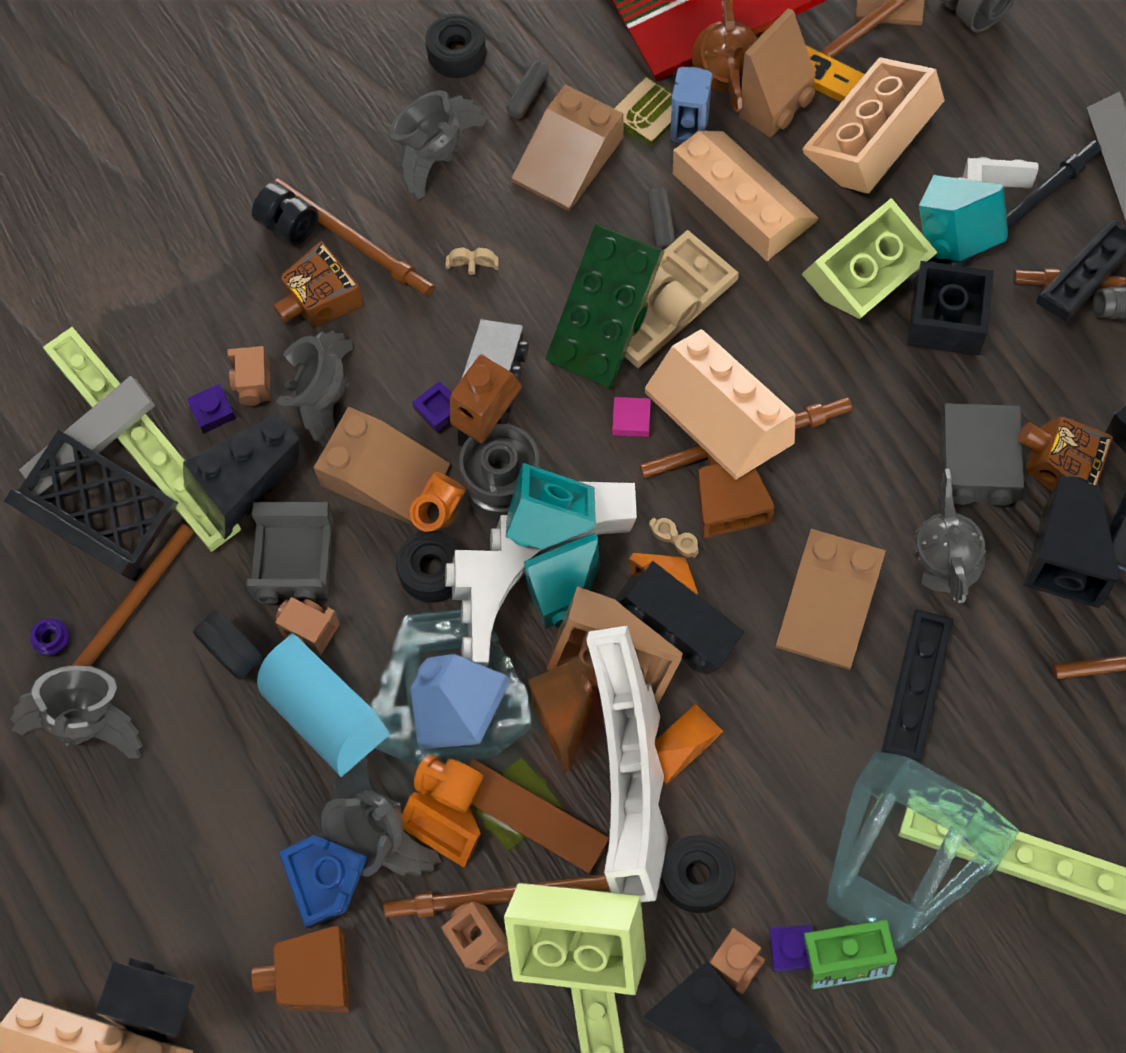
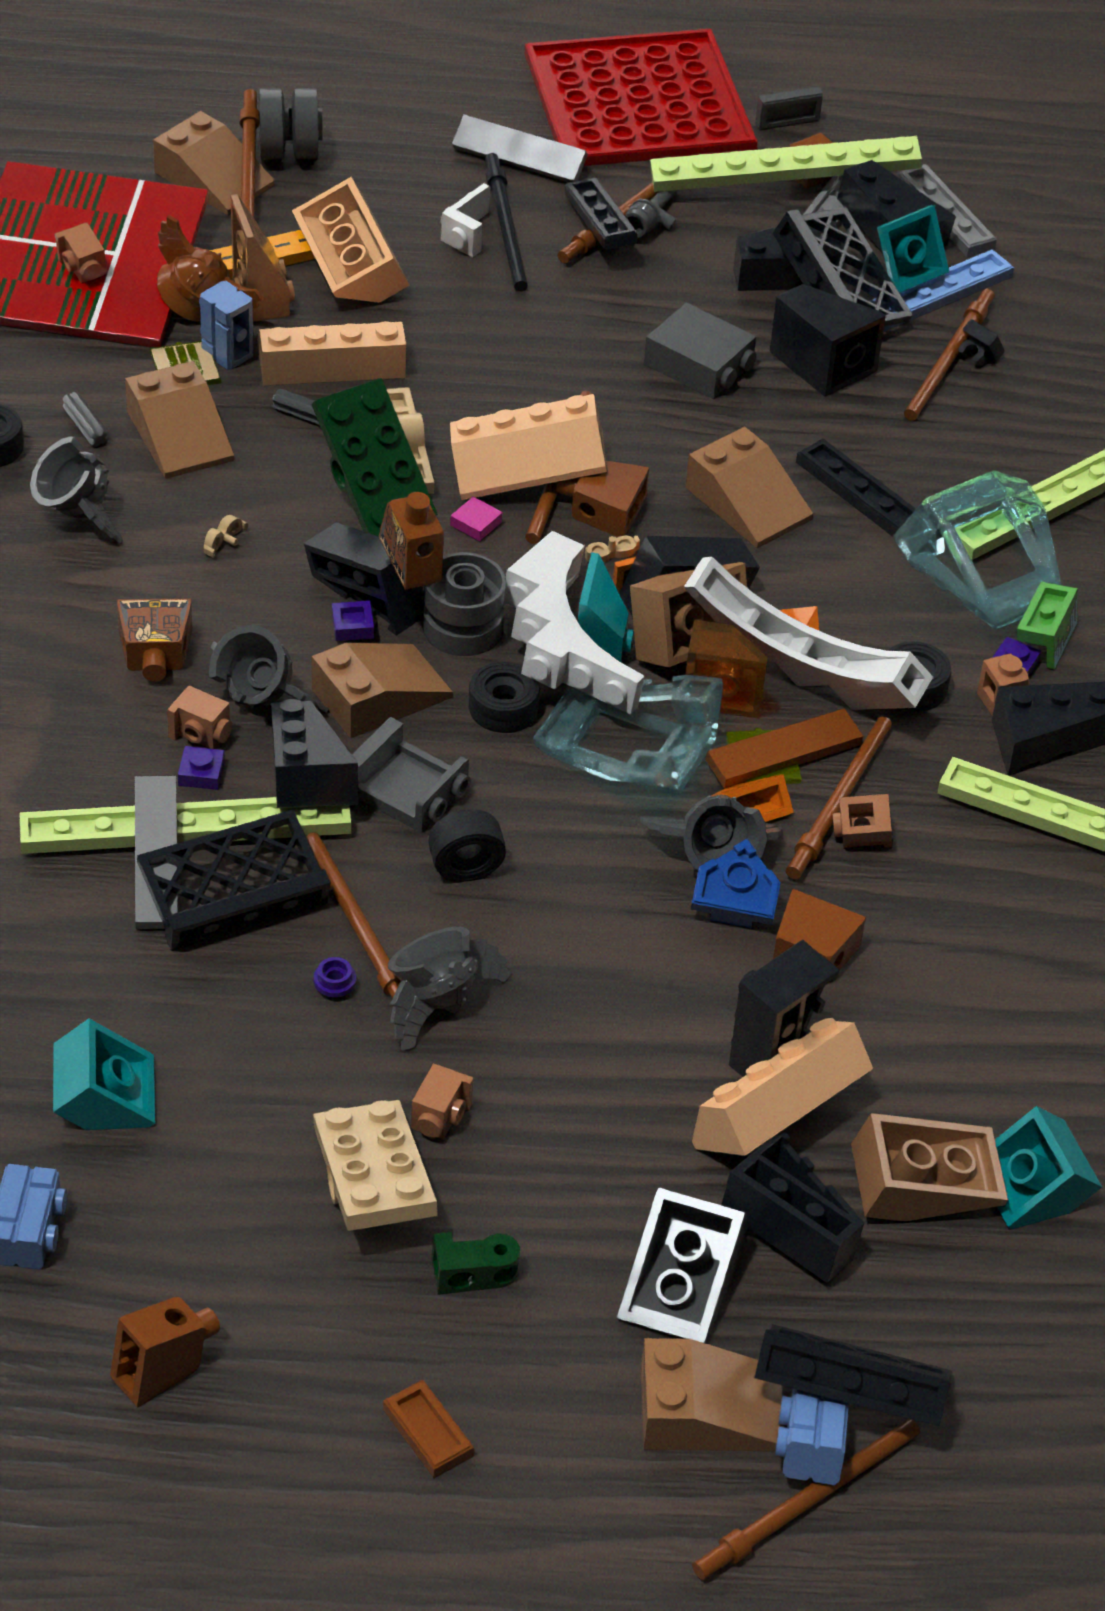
camera: 65 degrees left, 20 degrees down
(284, 213) = (40, 621): black wheel -> none
(307, 623) = (491, 792): nougat brick -> none
(319, 705) = (583, 802): medium azure brick -> none
(400, 270) = (190, 581): dark orange bar -> none
(445, 494) = (456, 641): orange piece -> none
(449, 783) = (725, 761): orange piece -> none
(454, 701) = (660, 715): medium blue slope -> none
(548, 508) = (545, 570): teal slope -> none
(576, 938) = (924, 743): yellowish green brick -> none
(870, 261) = (475, 312): yellowish green slope -> none
(950, 307) = (563, 294): black brick -> none
(950, 547) = (765, 400): dark grey helmet -> none
(963, 216) = (494, 240): teal slope -> none
(1064, 450) = (745, 304): dark orange torso -> none

